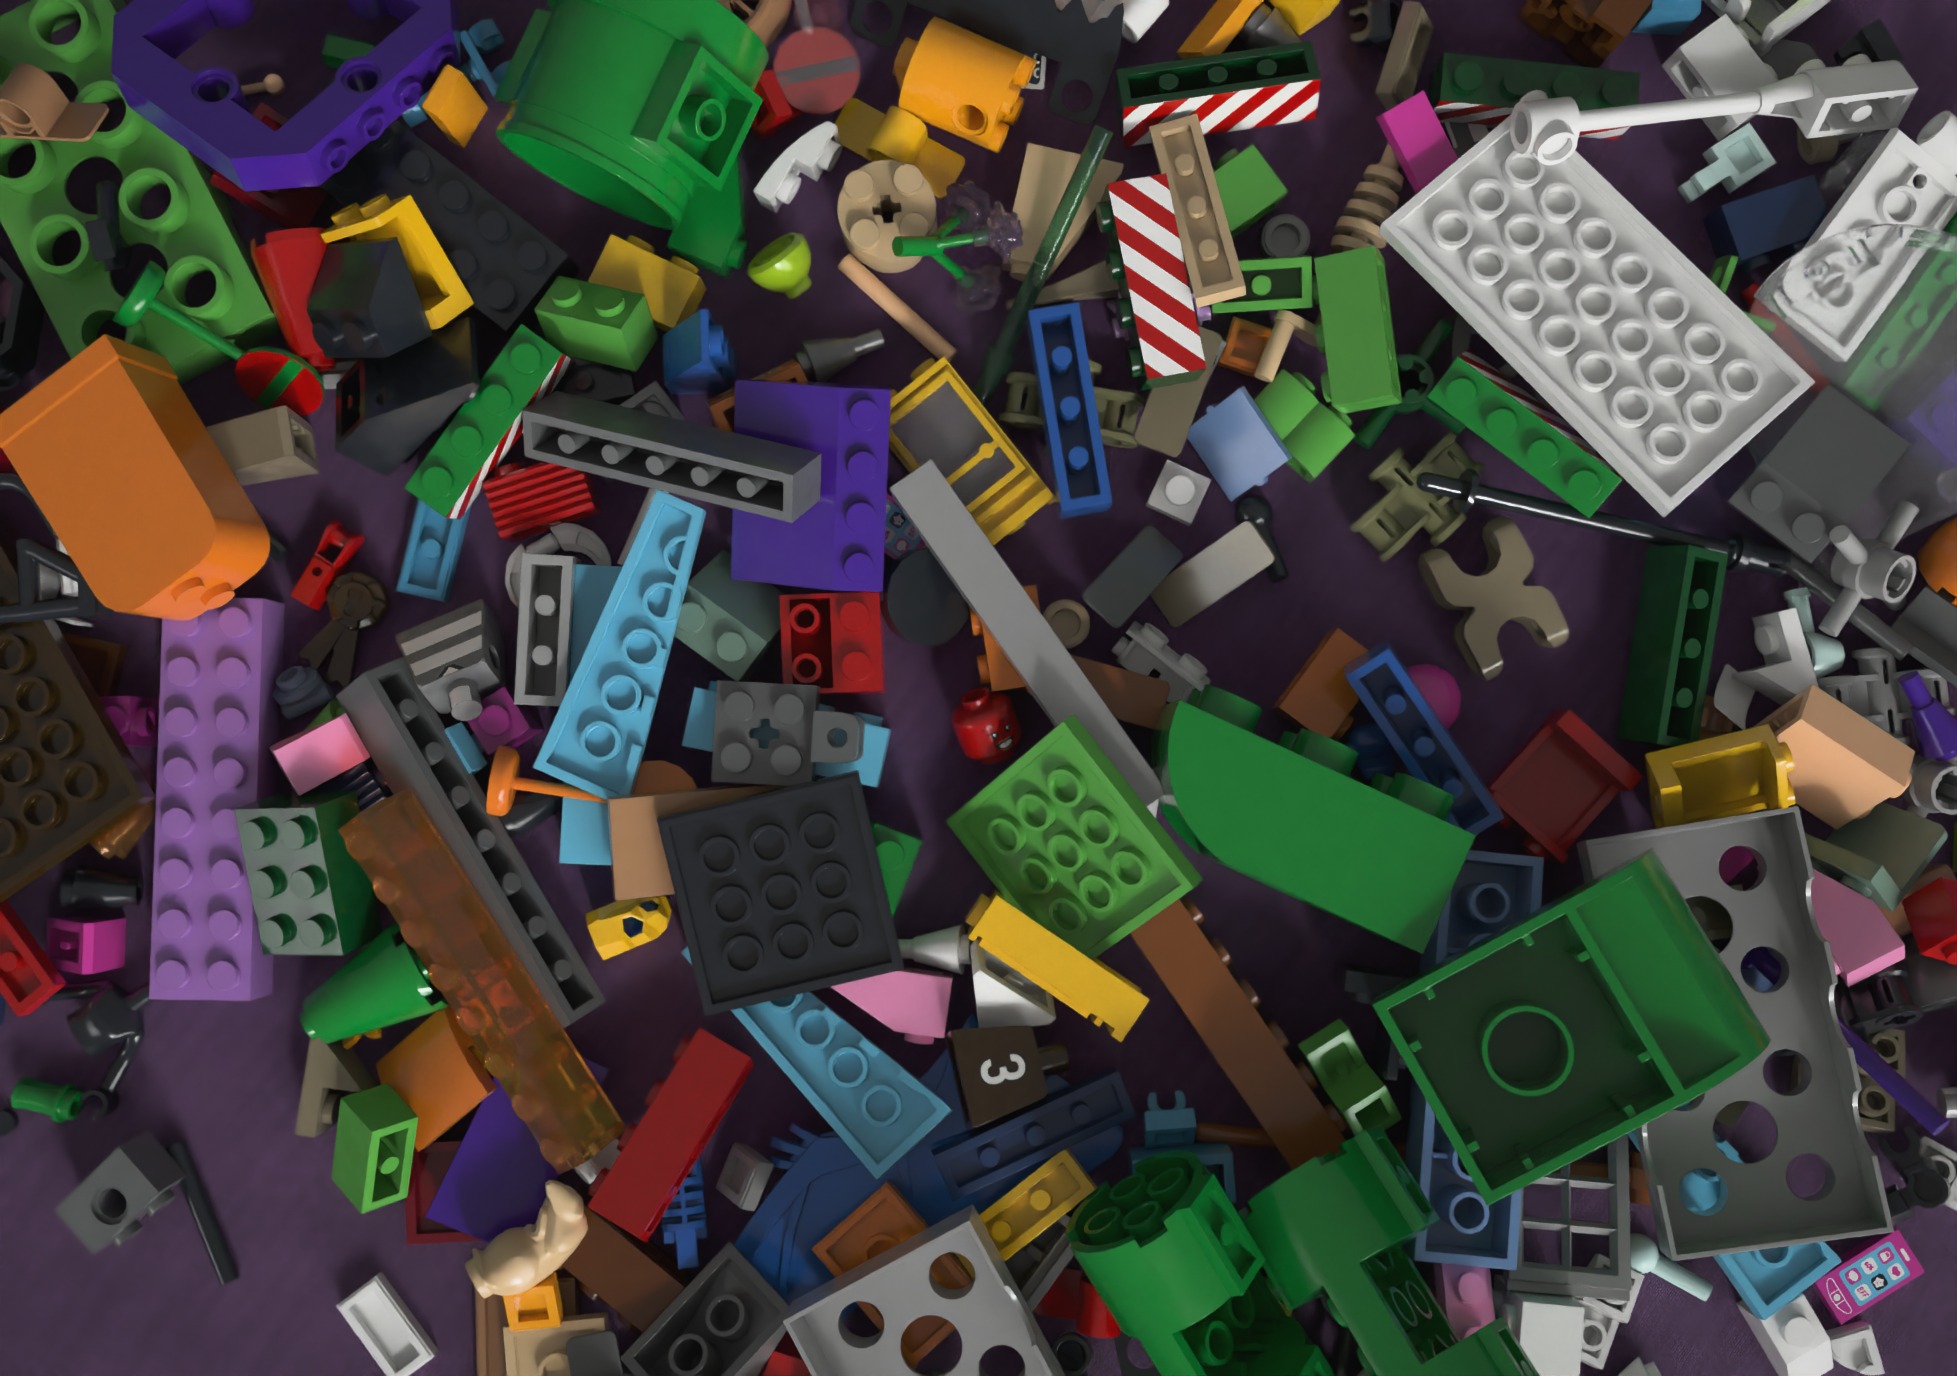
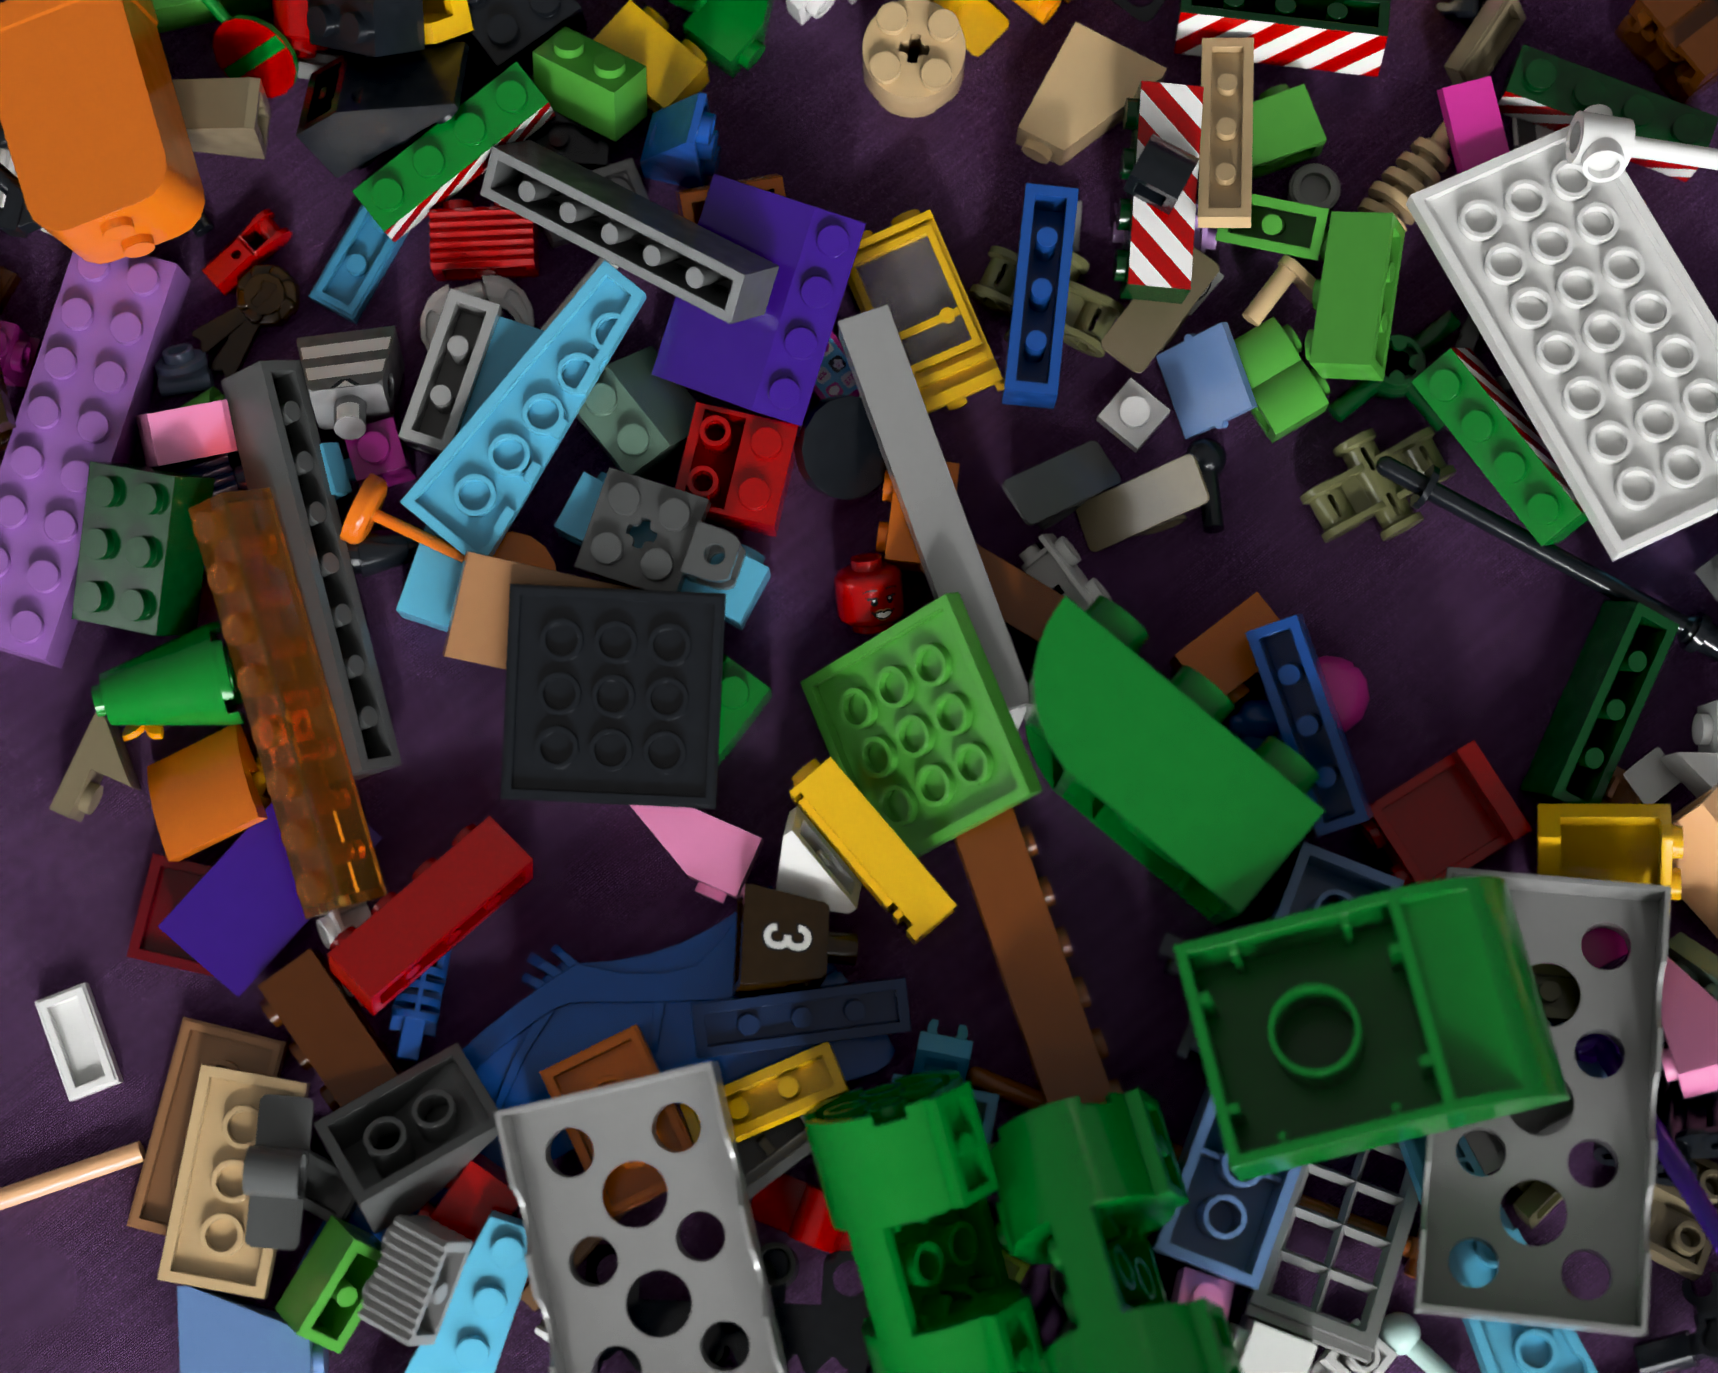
camera: 20 degrees right, 5 degrees down
(374, 1147) = (125, 844): bright green brick -> none
(531, 1253) = (259, 990): tan animal -> none
(536, 1307) = (240, 1044): light orange tile -> none
(628, 924) = (447, 694): yellow rock -> none
(744, 1176) = (490, 985): light grey tile -> none
(783, 265) = (794, 78): lime brick -> none
(826, 357) = (814, 181): flat silver cone -> none
(846, 1077) = (623, 904): medium azure wing -> none
(896, 308) = (897, 152): light nougat bar -> none
(941, 949) = (758, 809): white cone -> none
(970, 213) = (1005, 88): clear purple plant -> none
(999, 356) = (988, 227): clear green bar -> none
(1068, 621) = (984, 515): tan tile -> none
(1087, 284) = (1094, 180): dark tan piece -> none
(1151, 267) = (1160, 174): none -> black brick
(1244, 346) = (1240, 285): orange tile -> none
(1348, 1079) = (1140, 1052): bright green brick -> none
(1493, 598) = (1428, 609): dark tan piece -> none

